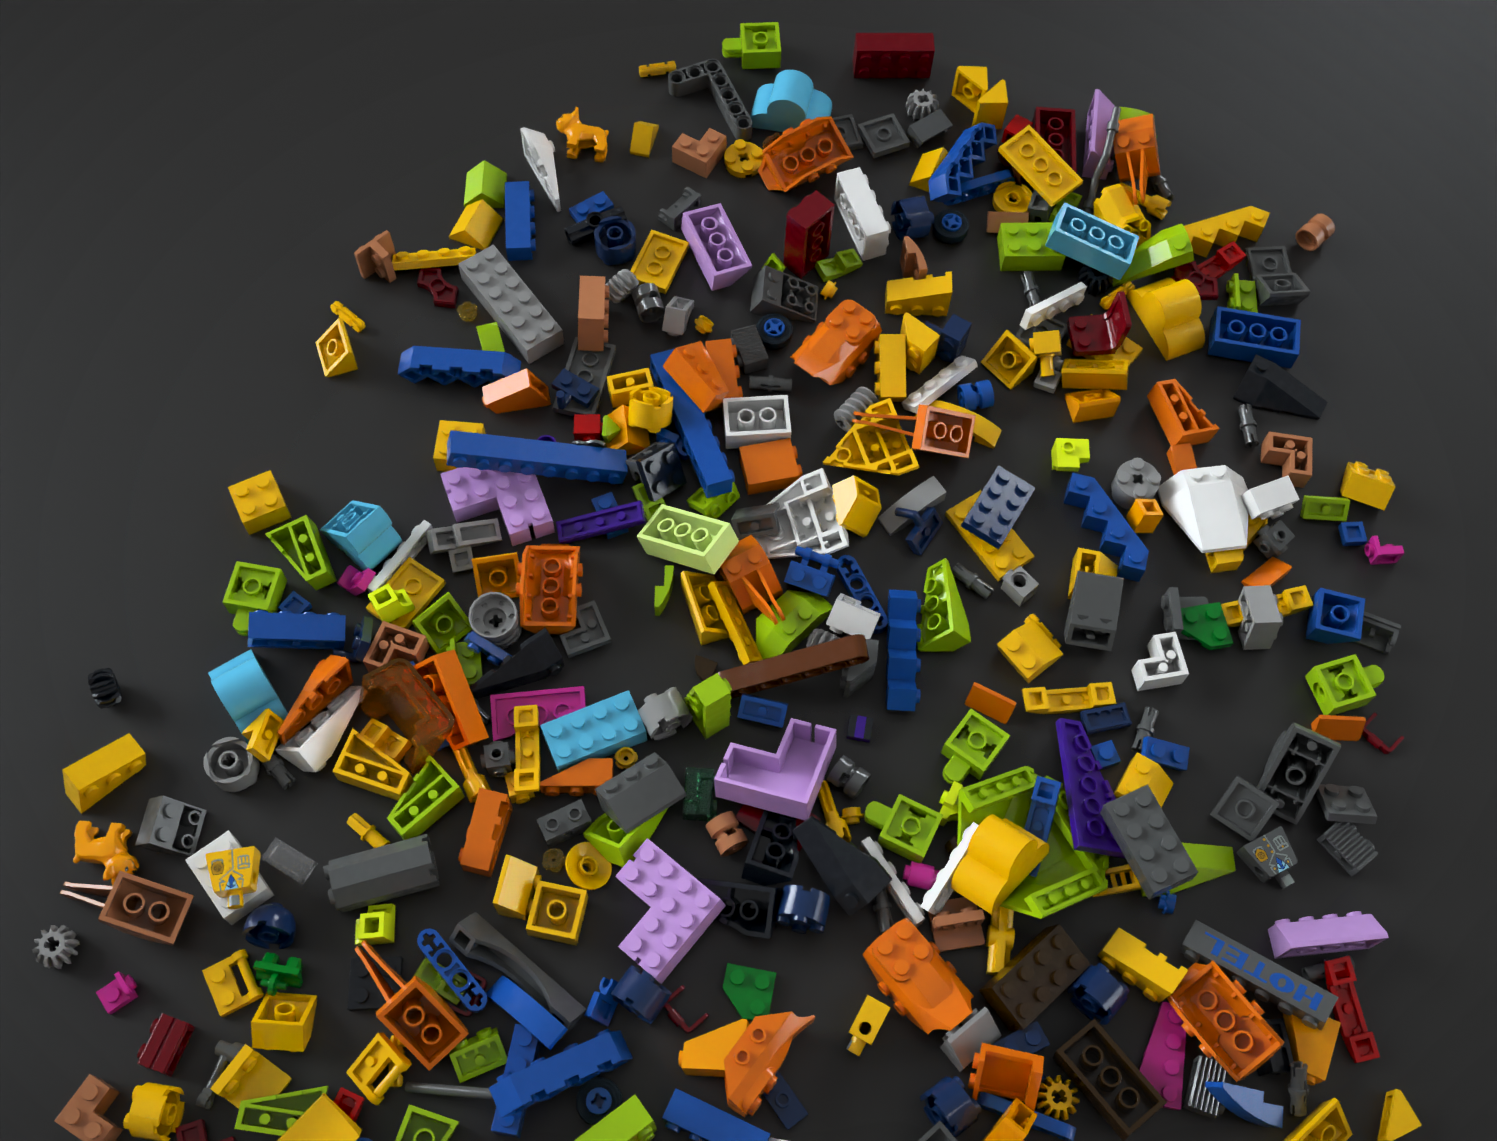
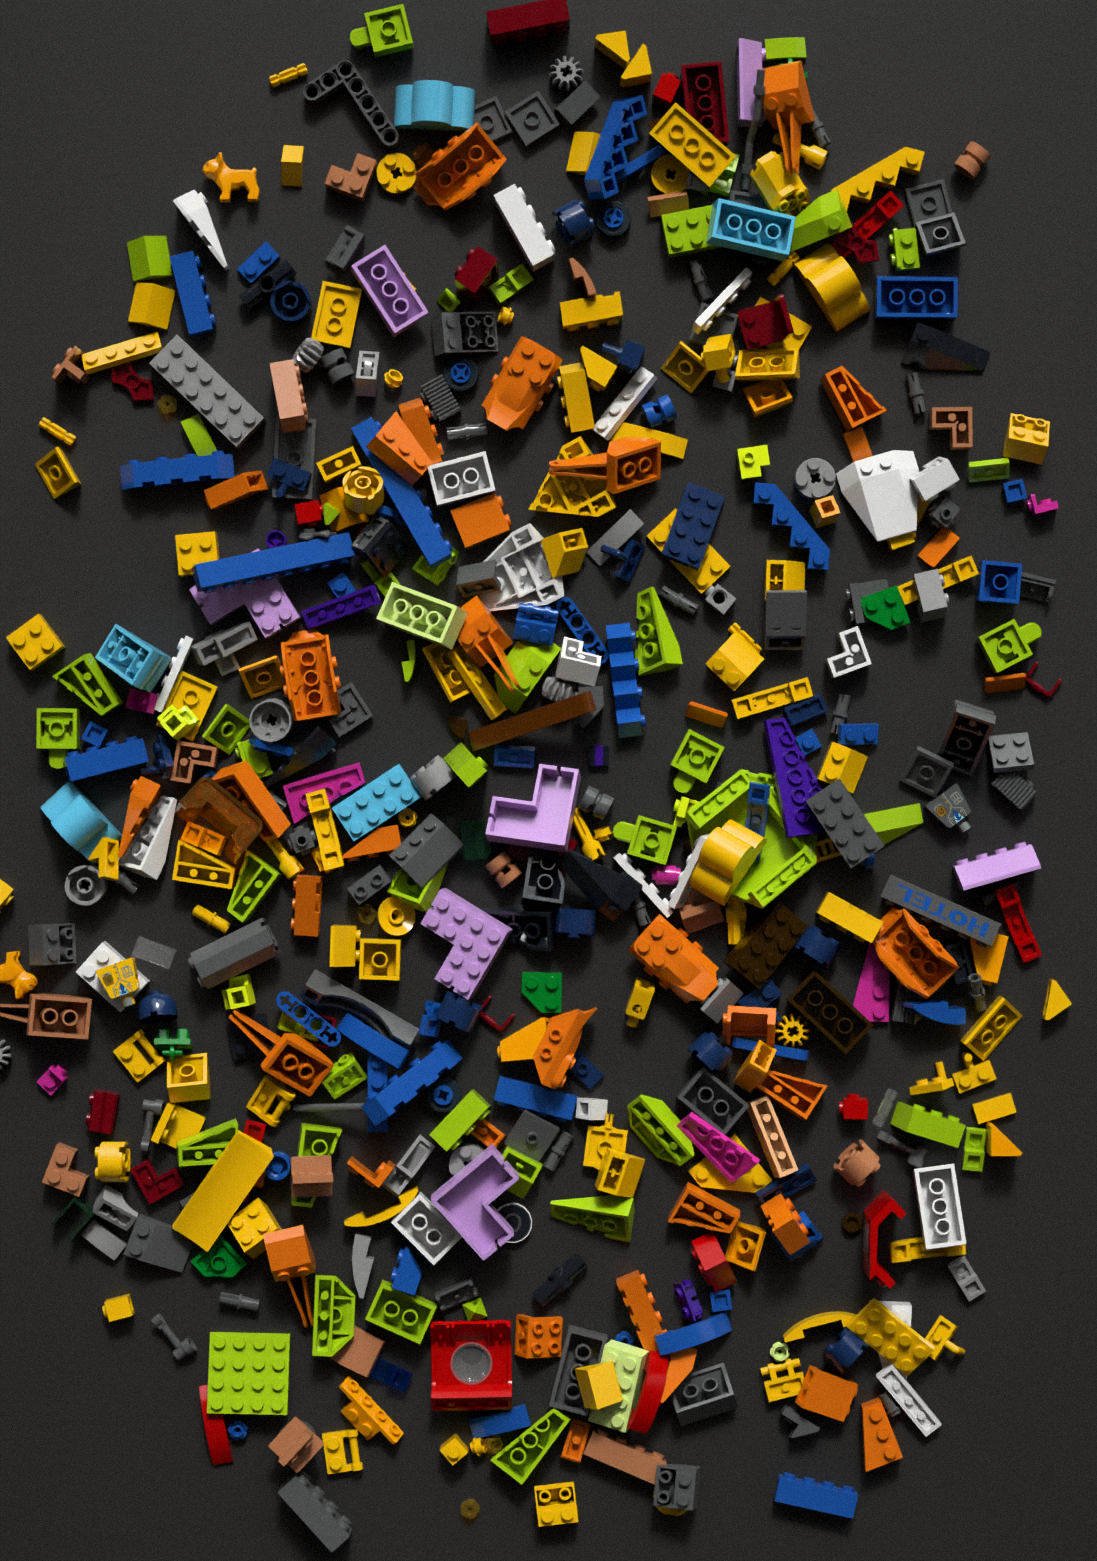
camera: 10 degrees left, 25 degrees up
(858, 402) = (549, 447): light grey piece -> none

